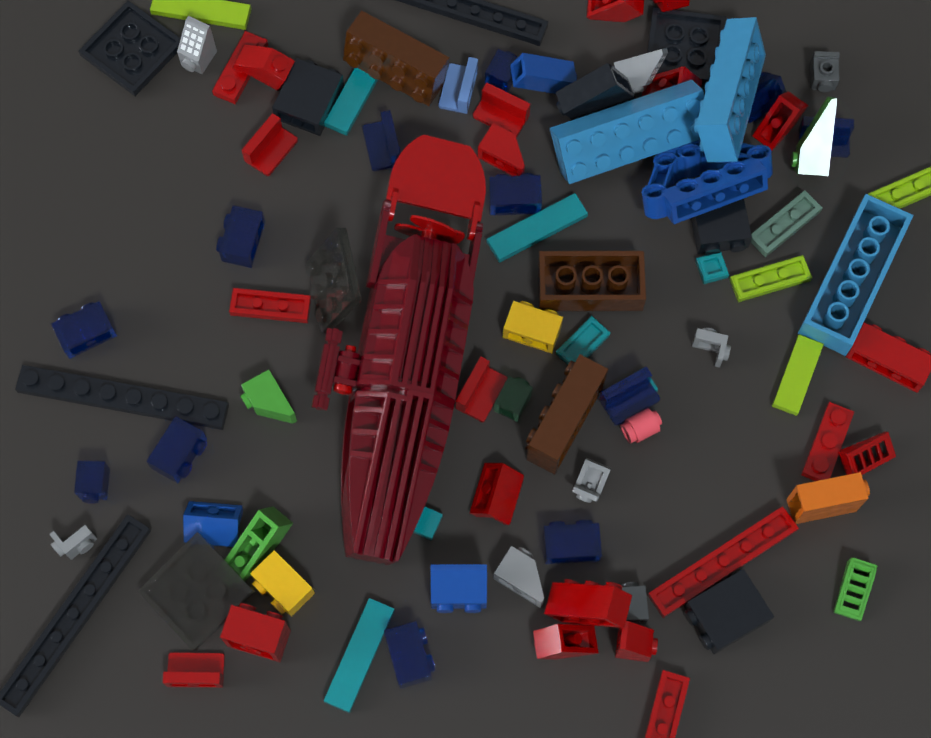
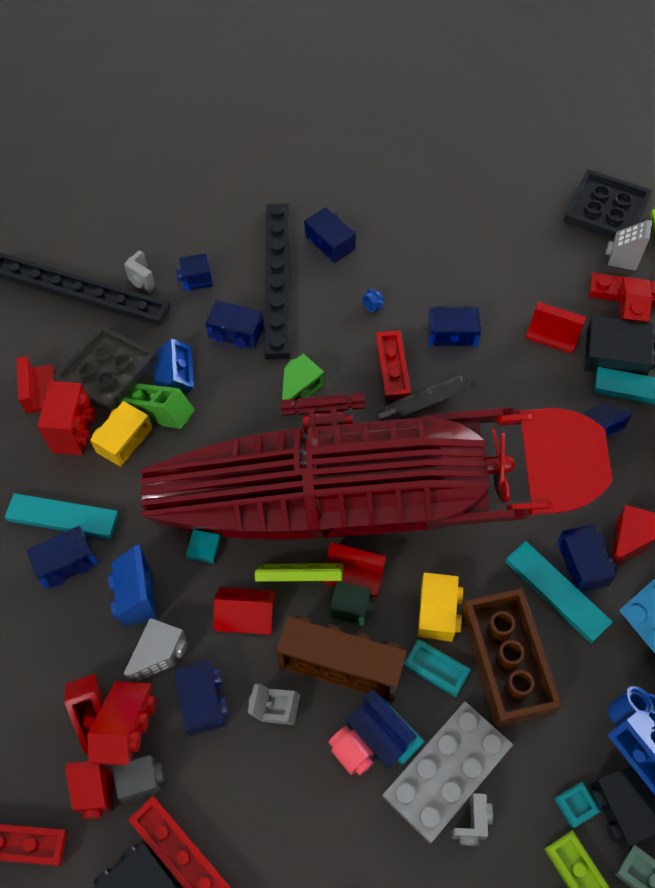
camera: 80 degrees right, 10 degrees down
(184, 306) = (373, 300): none -> blue plate
(475, 436) = (300, 572): none -> lime tile
(669, 356) = (447, 772): none -> light grey plate

